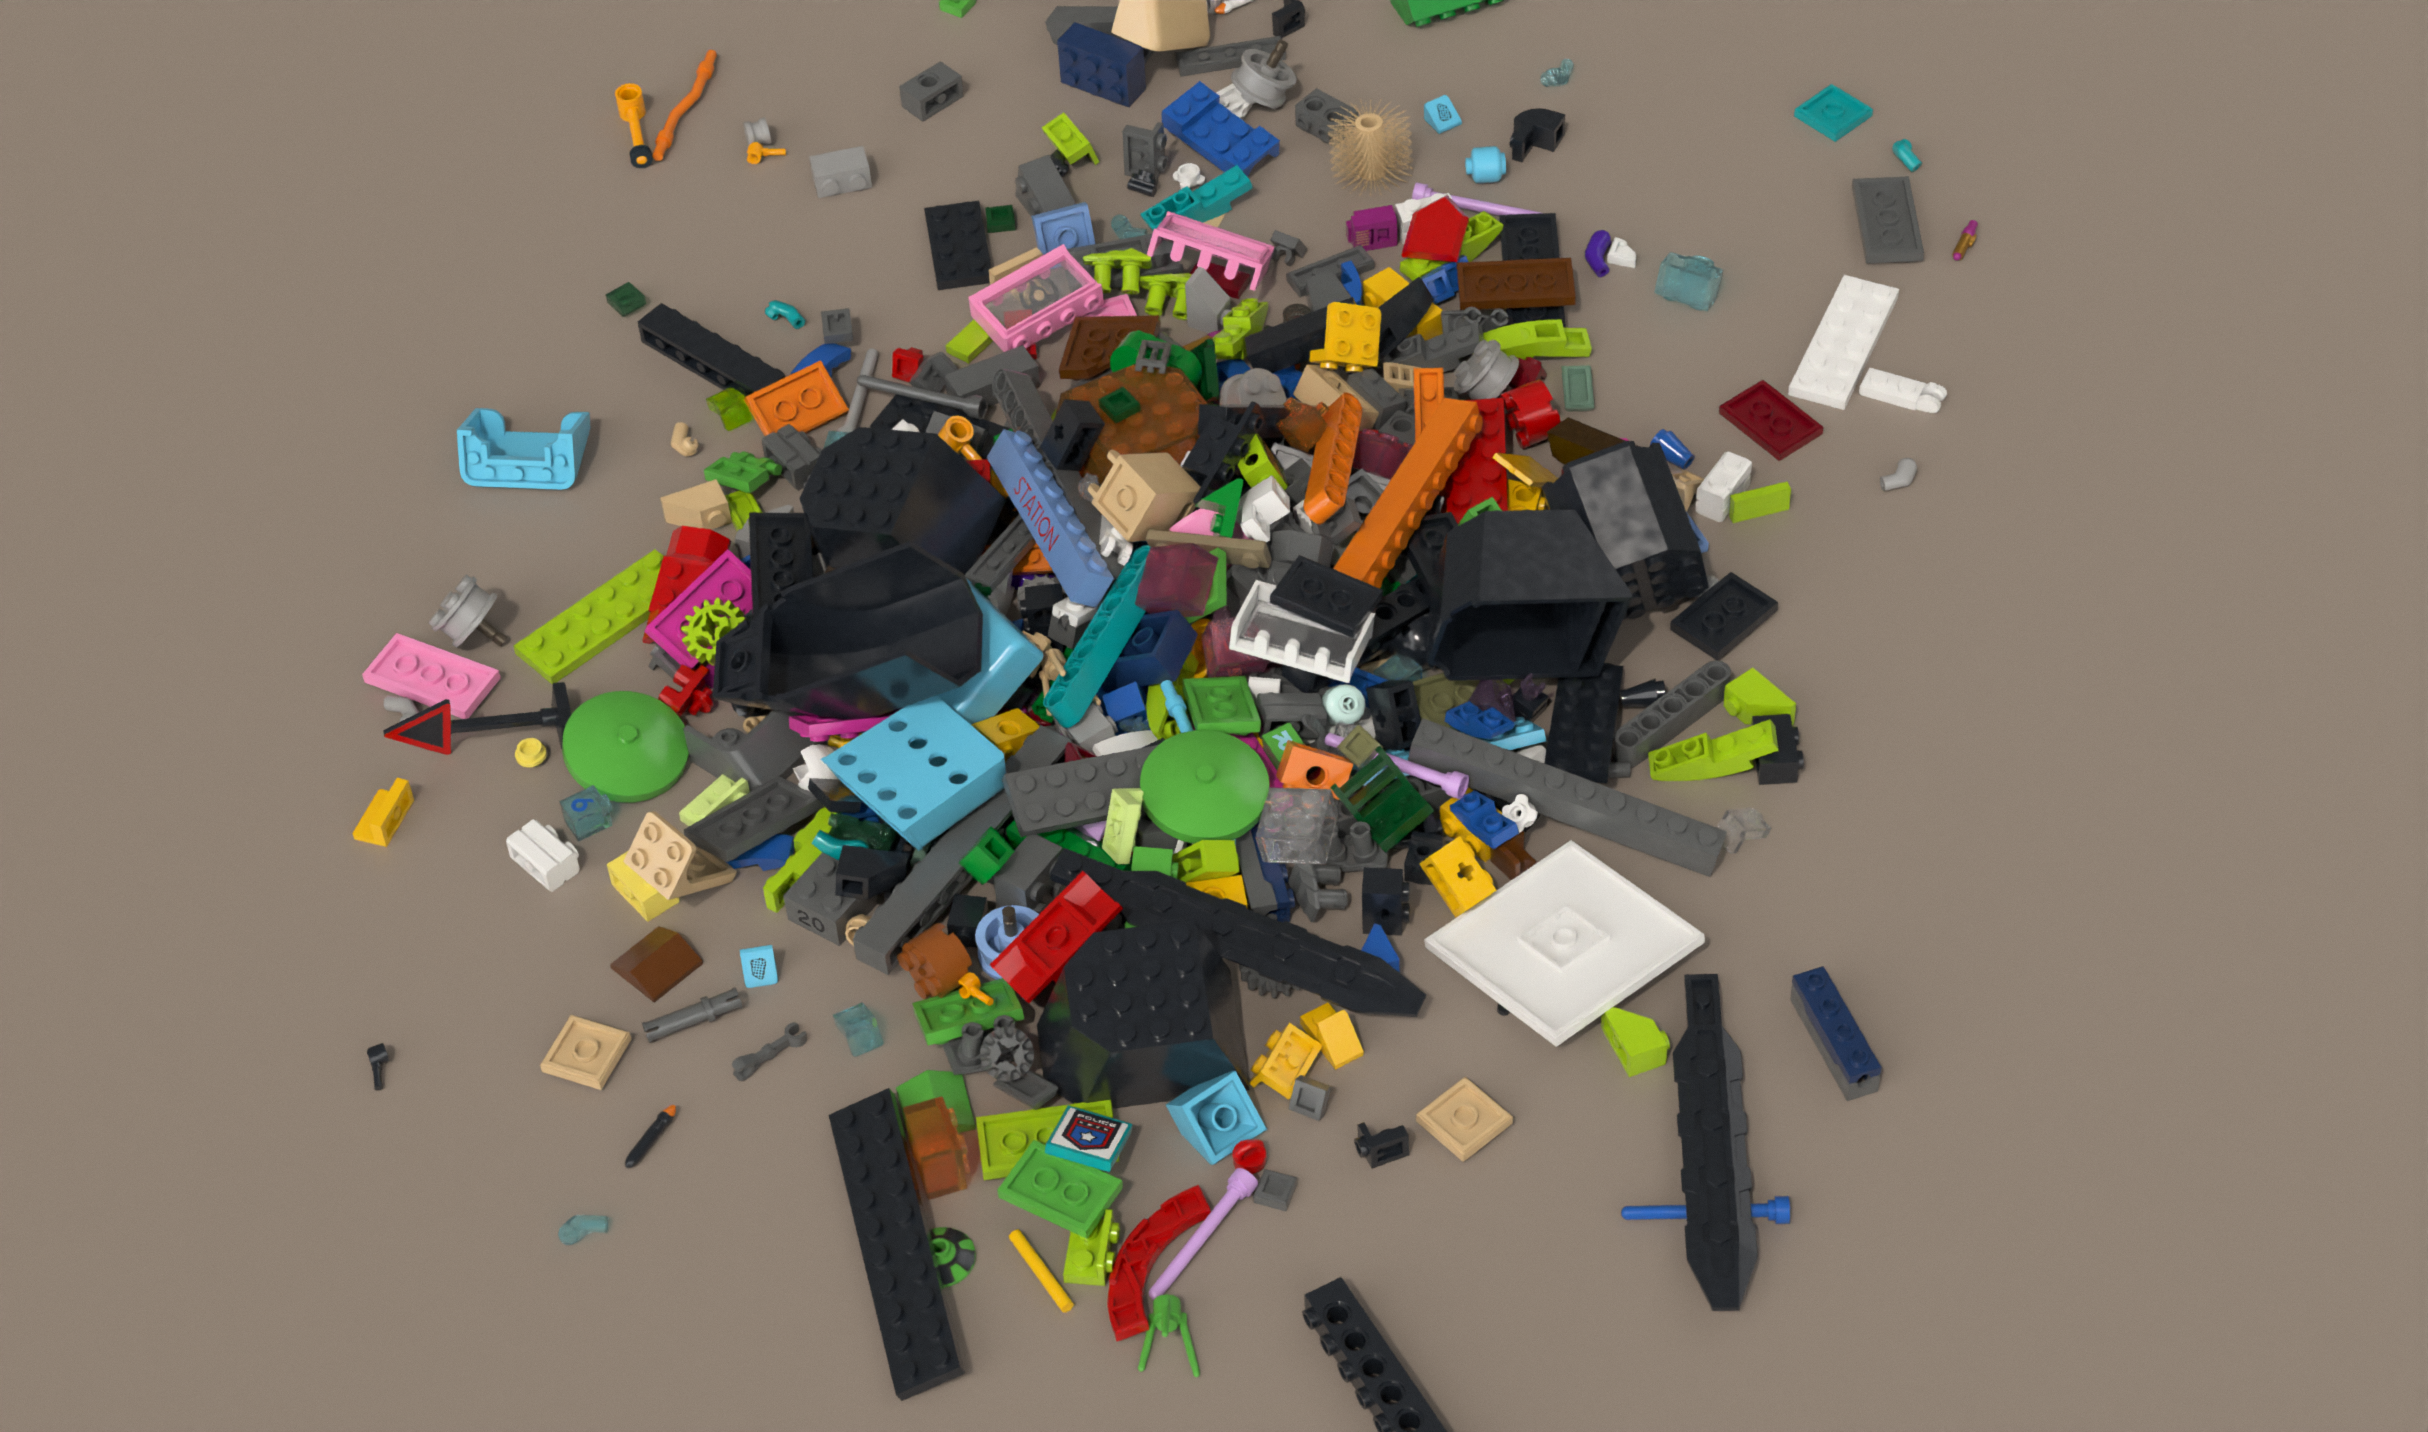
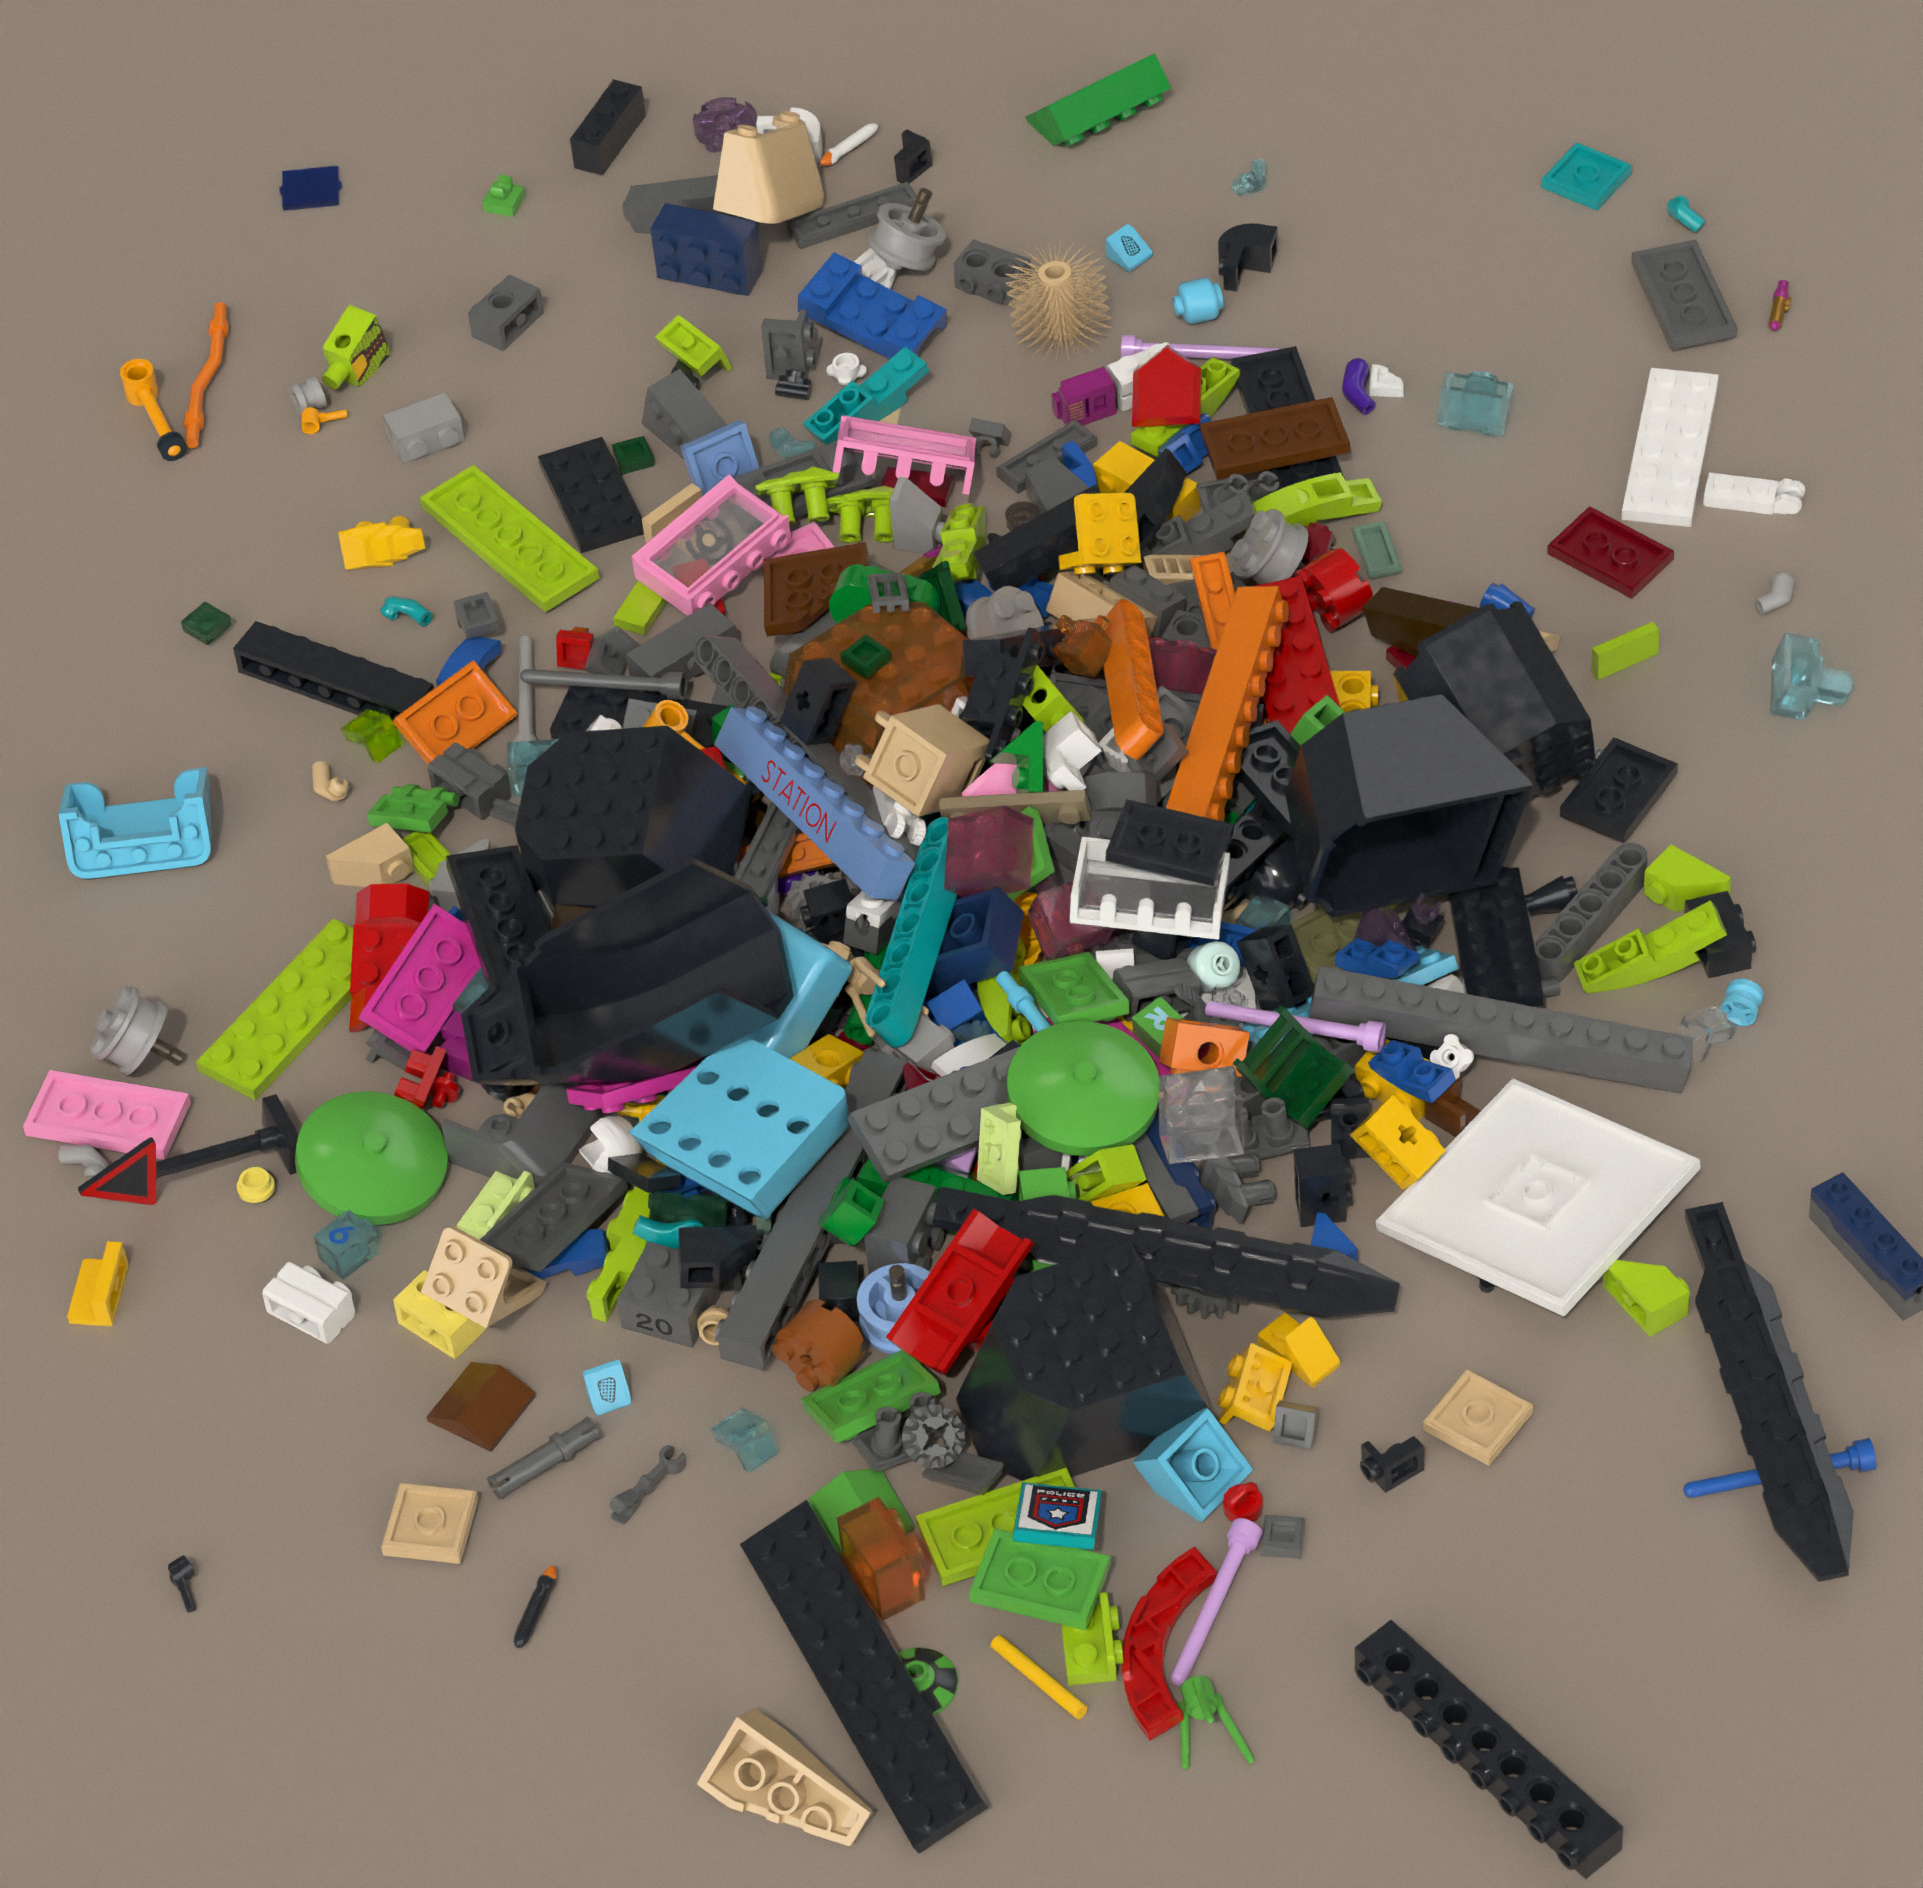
camera: 10 degrees left, 0 degrees up
(580, 1226) = (484, 1723): clear light blue arm -> none
(703, 628) = (433, 1009): lime gear -> none
(778, 258) = (379, 544): none -> yellow connector
(802, 1315) = (776, 1777): none -> tan wedge
(803, 101) = (354, 349): none -> lime torso
(882, 269) = (509, 538): none -> lime plate
(971, 987) = (867, 1367): light orange hand -> none
(1359, 747) = (1250, 1011): olive tile -> none
(1525, 469) = (1352, 657): yellow piece -> none
(1726, 478) = (1580, 631): white brick -> none
(1779, 809) = (1742, 1001): none -> medium azure wheel
(1901, 549) = (1802, 679): none -> clear light blue brick

